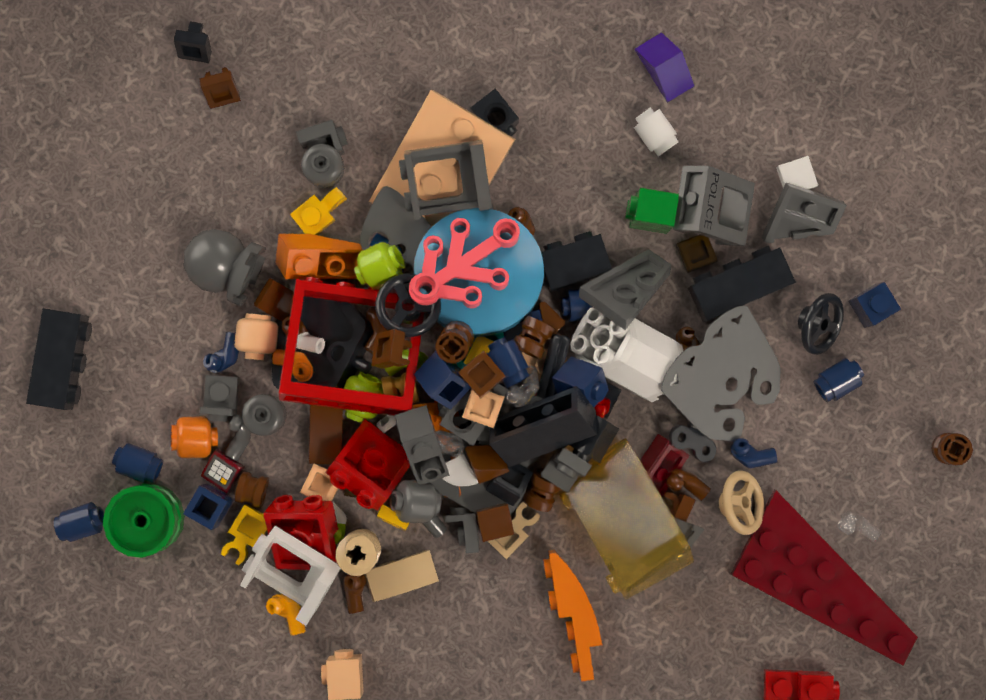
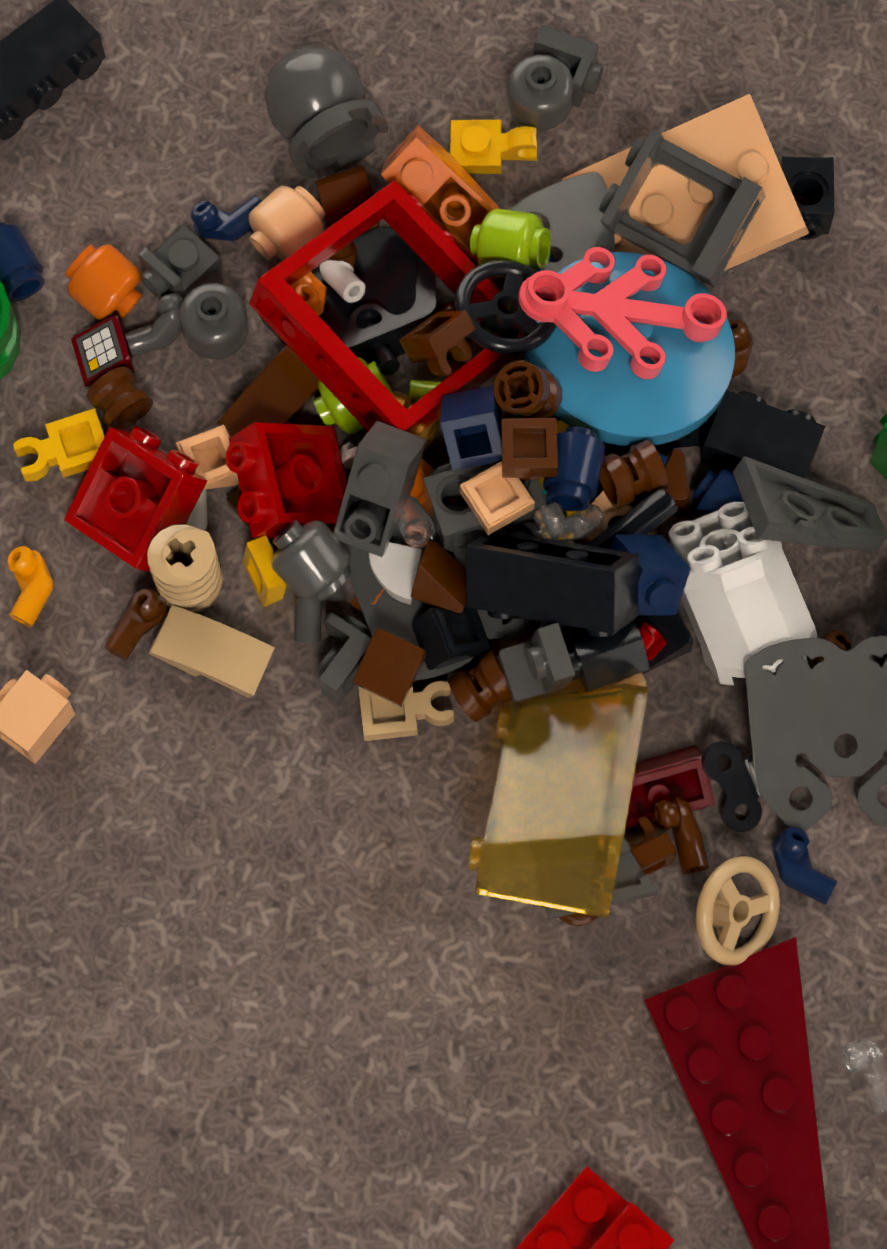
camera: 40 degrees right, 15 degrees down
(208, 506) = (50, 372): dark blue brick -> none
(306, 593) = (85, 580): white window -> none
(571, 601) = (404, 858): orange slope -> none

